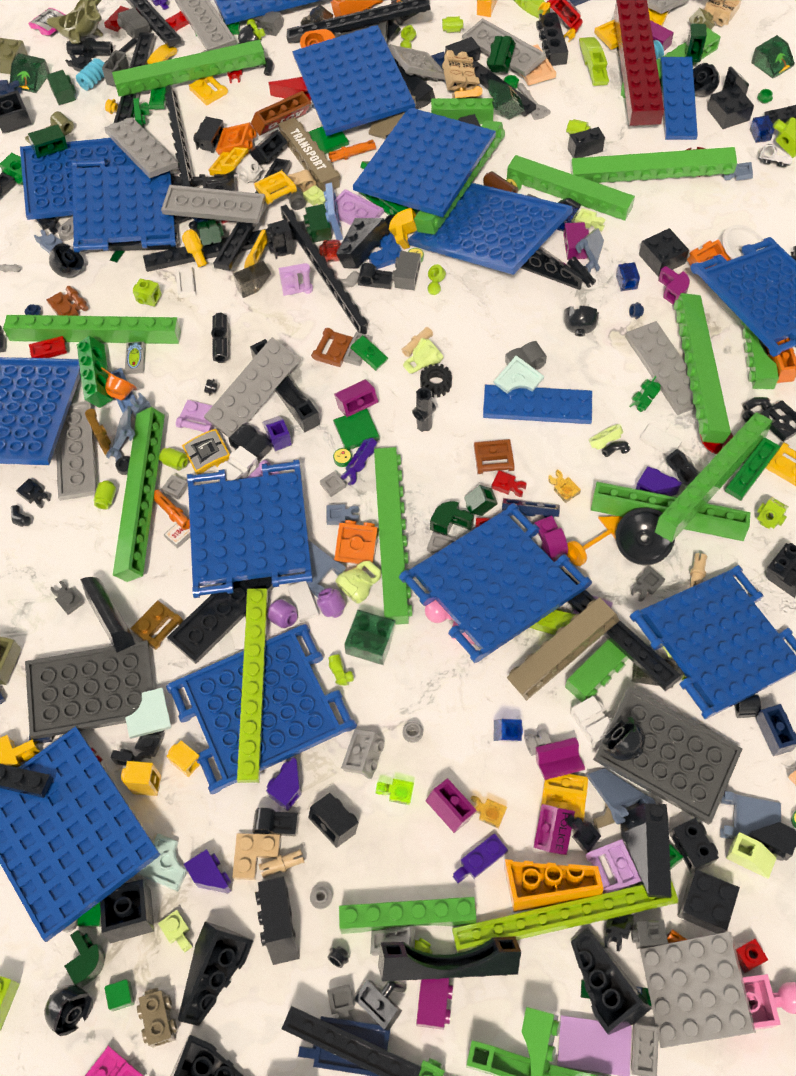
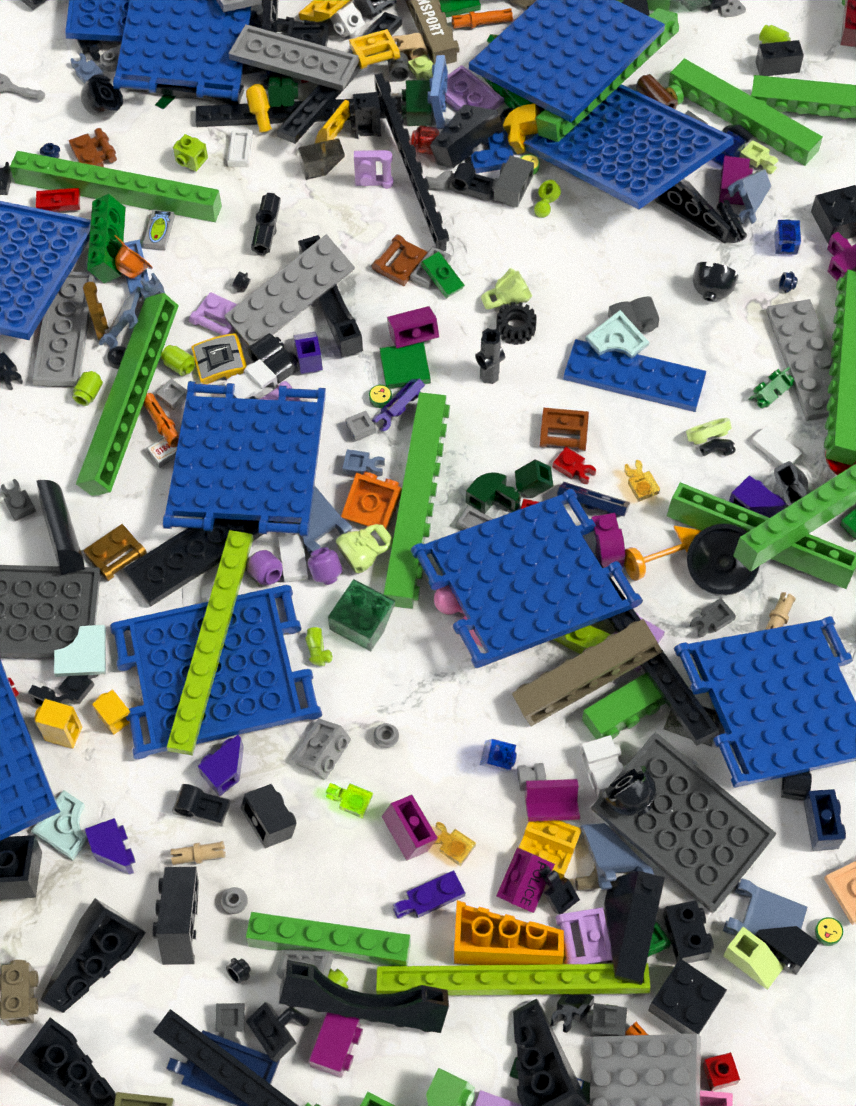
camera: 10 degrees right, 0 degrees up
(175, 929) = (60, 901): yellowish green plate -> none
(251, 847) = (165, 829): tan plate -> none
(409, 348) = (517, 264): tan pin -> none

